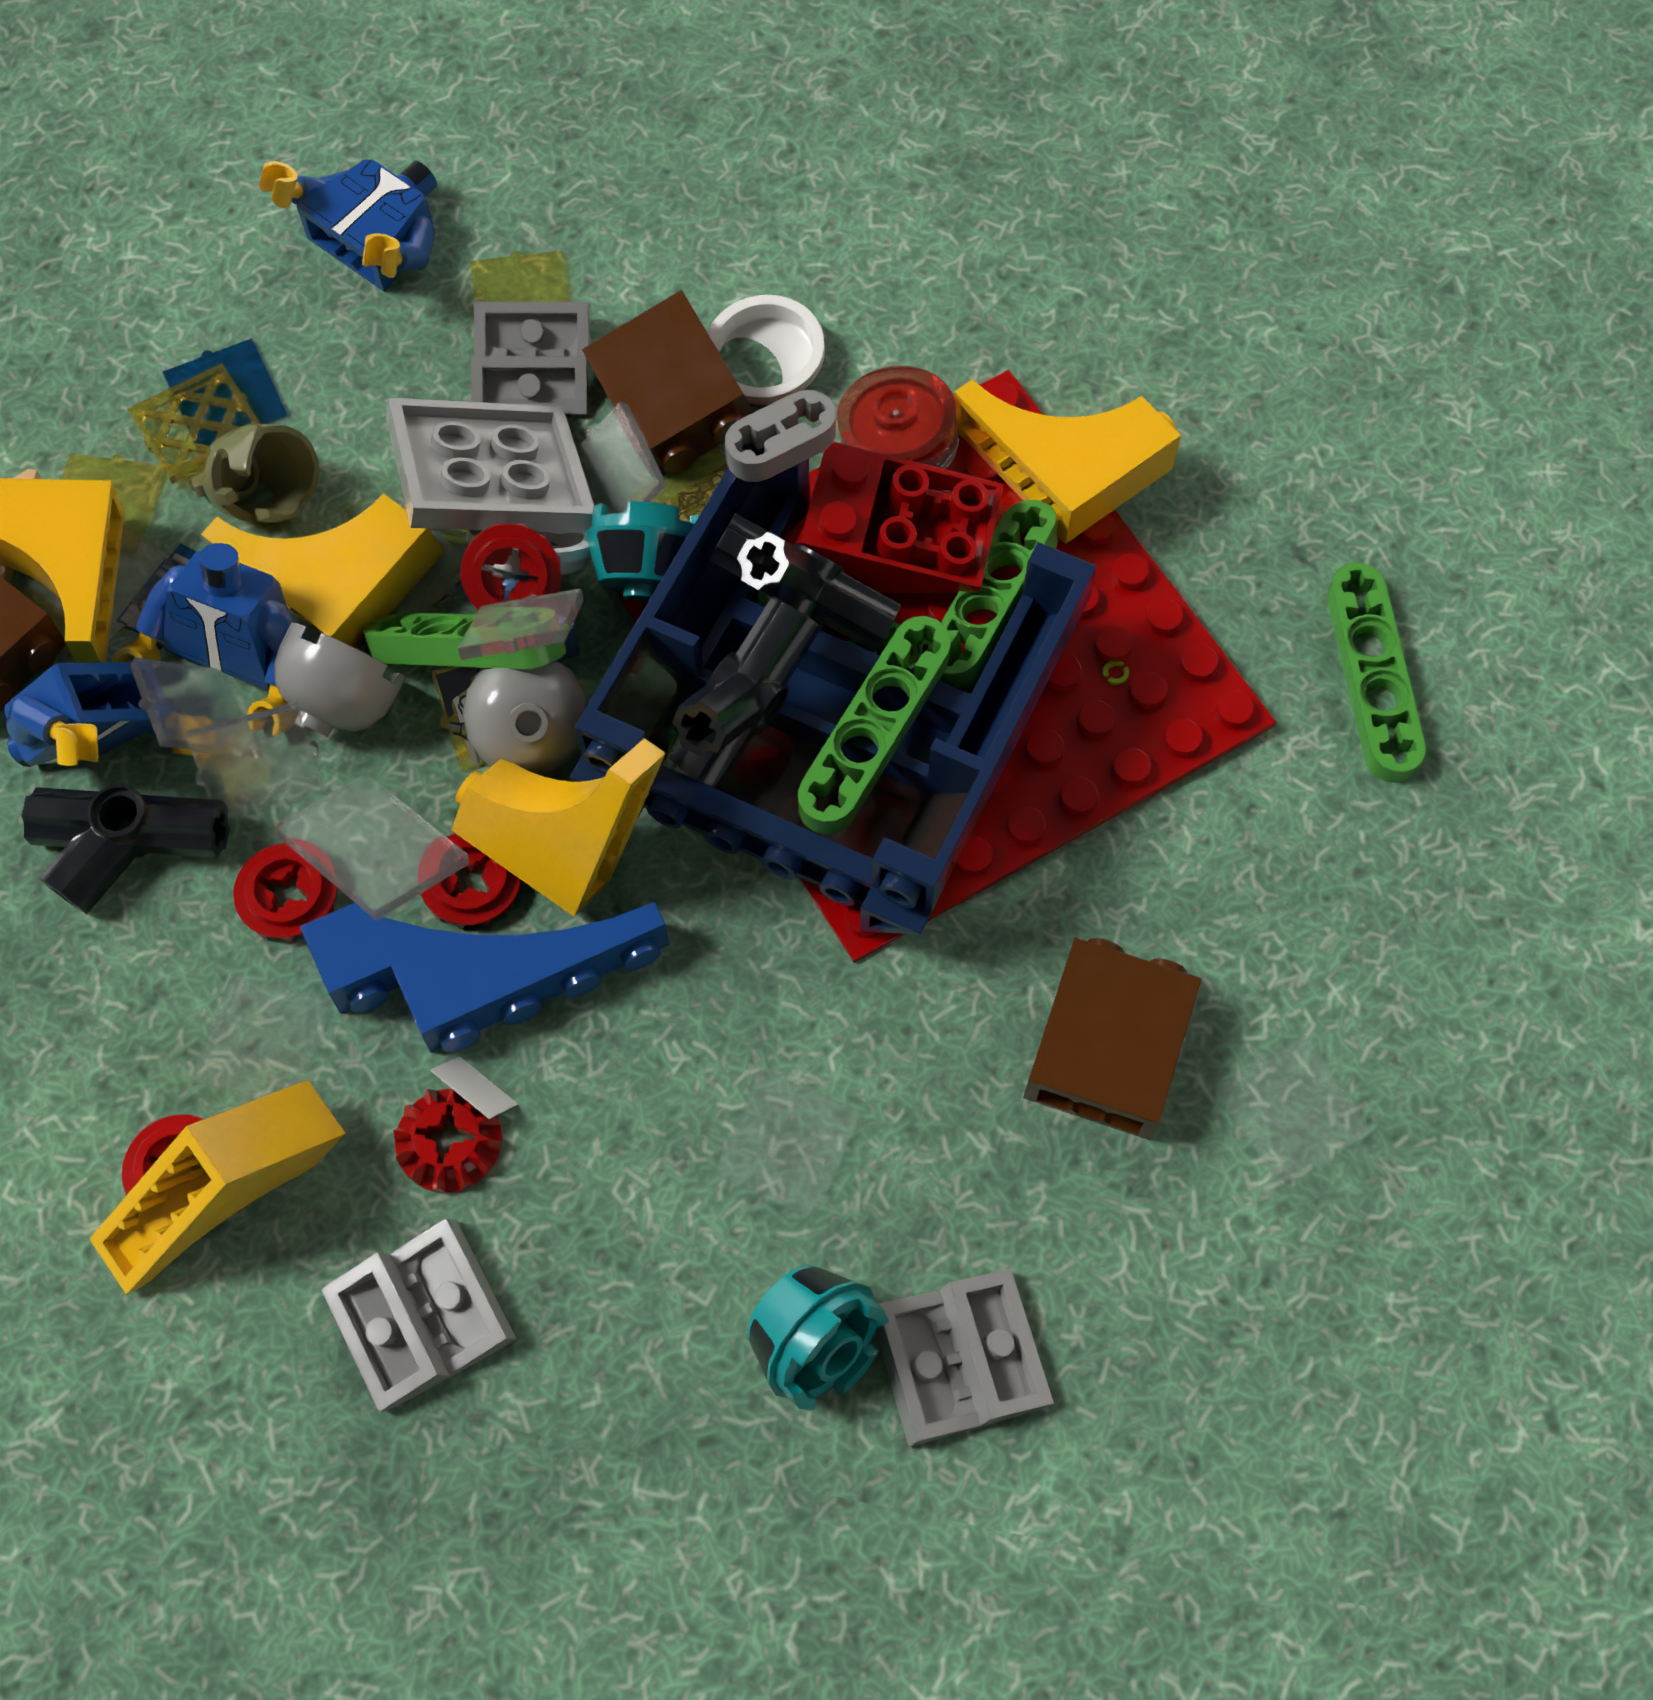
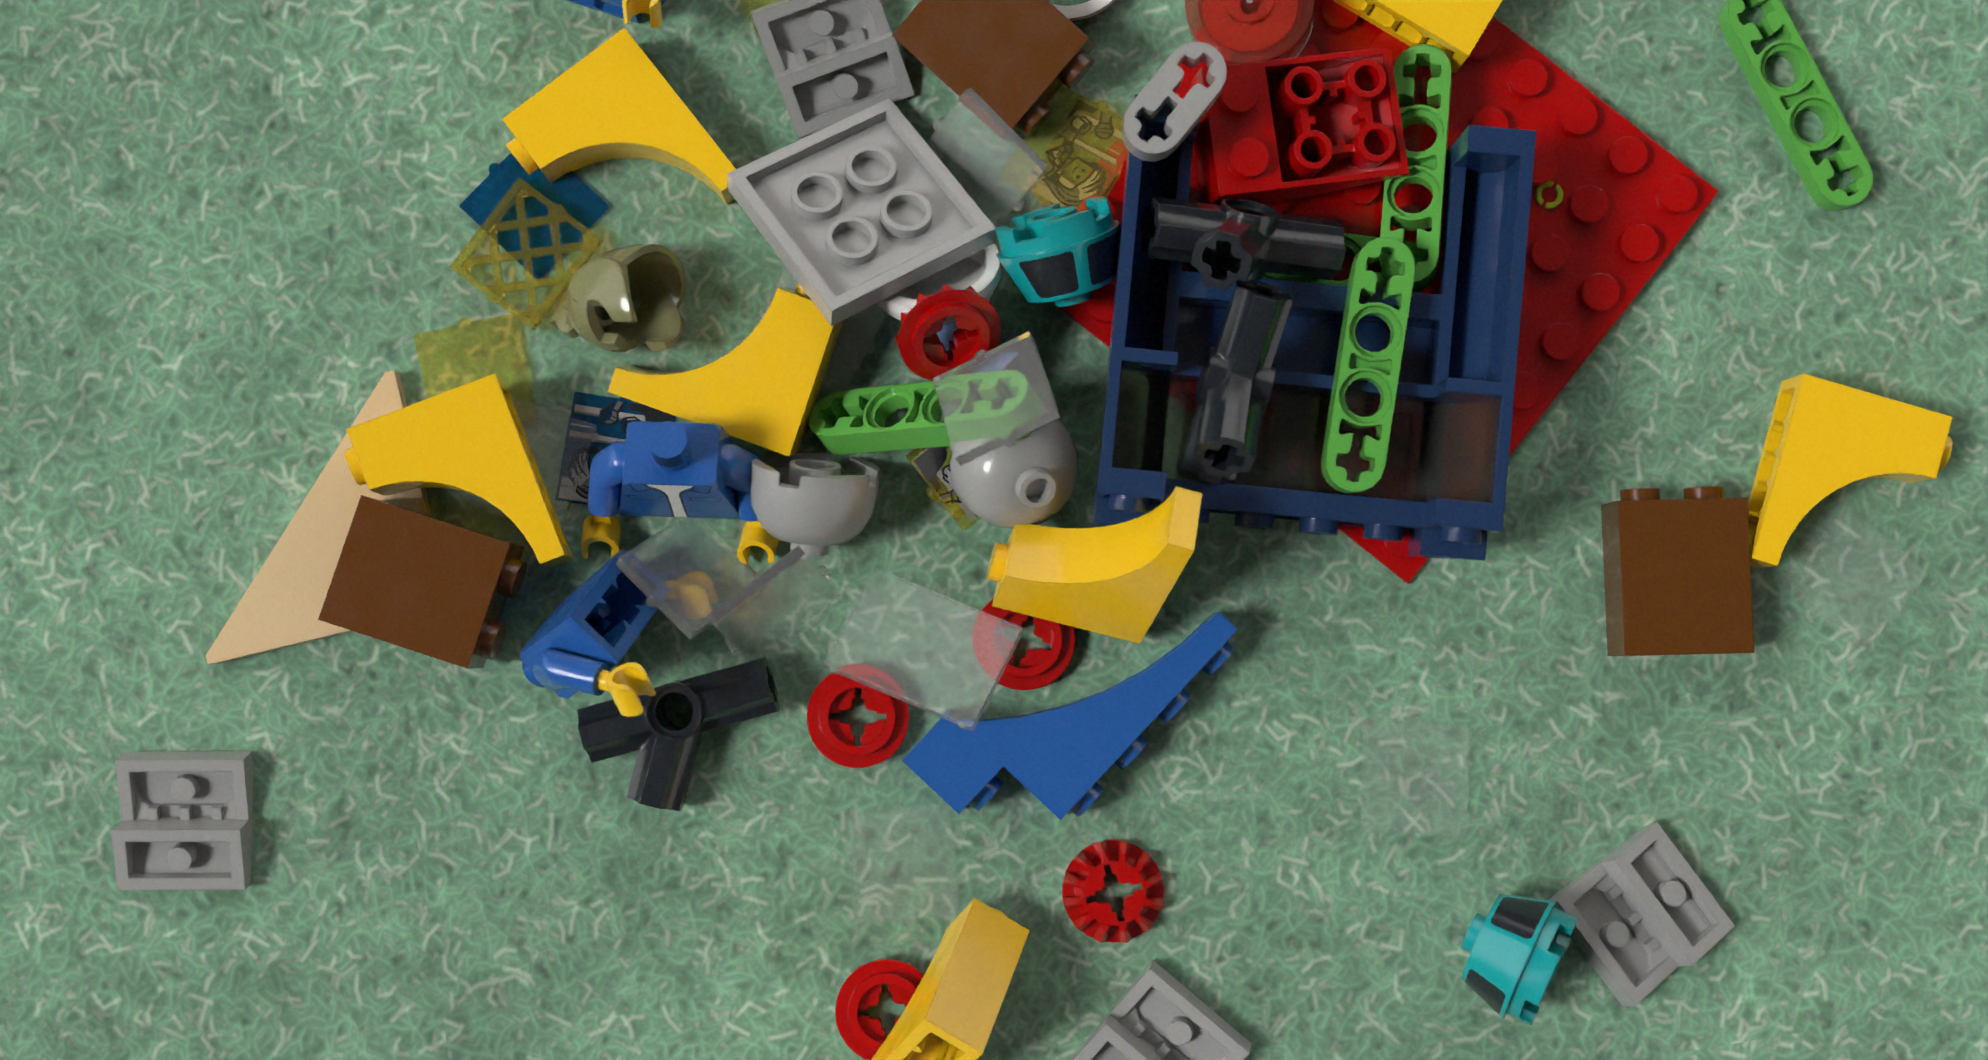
camera: 20 degrees left, 20 degrees up
(316, 336) = (613, 109): none -> yellow arch
(474, 1087) = (1119, 838): white sticker -> none
(1311, 970) = (1827, 439): none -> yellow arch

